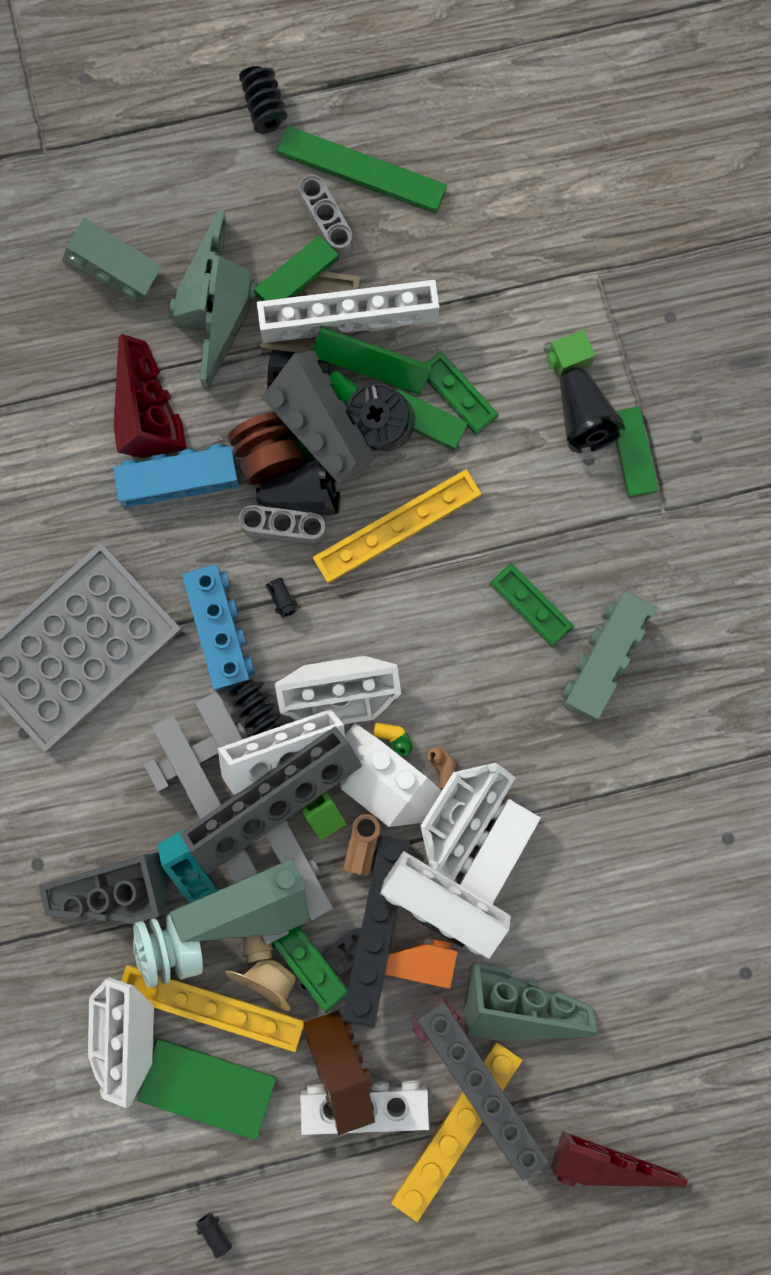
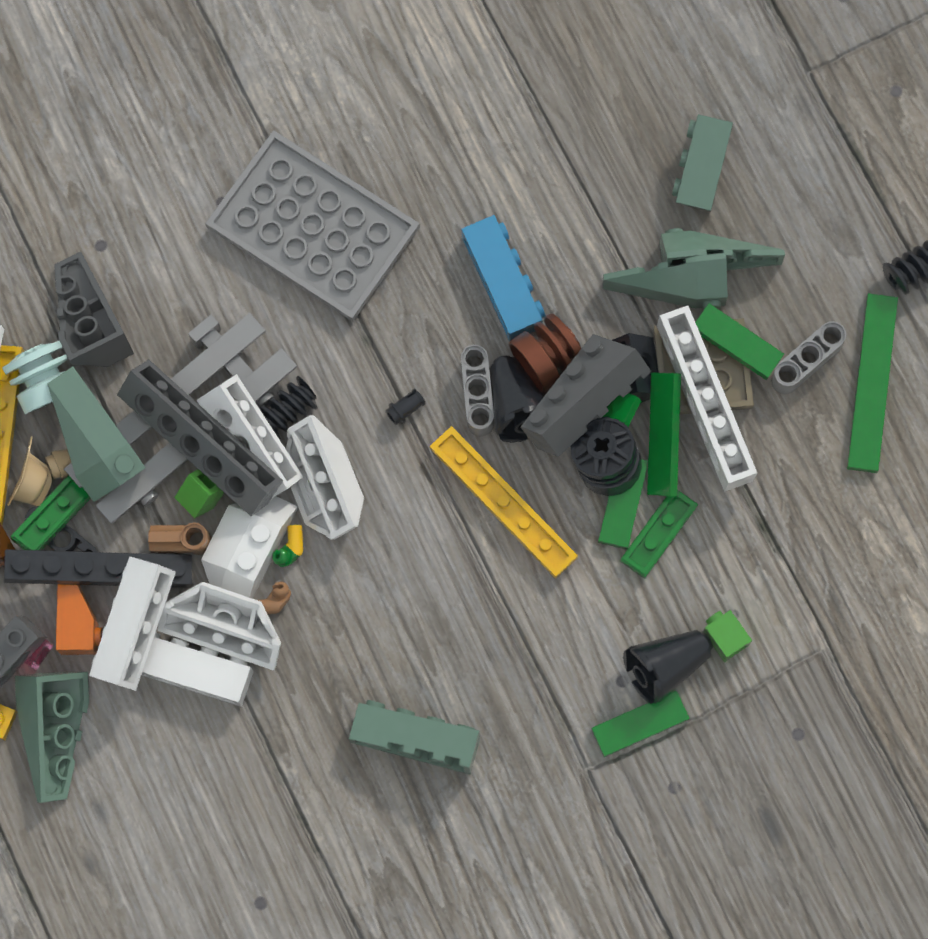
camera: 85 degrees right, 5 degrees down
(142, 411) = (560, 231): dark red wedge -> none
(185, 869) = (114, 376): teal arch -> none
(217, 628) = (360, 352): dark azure brick -> none
(531, 604) = (455, 653): green tile -> none

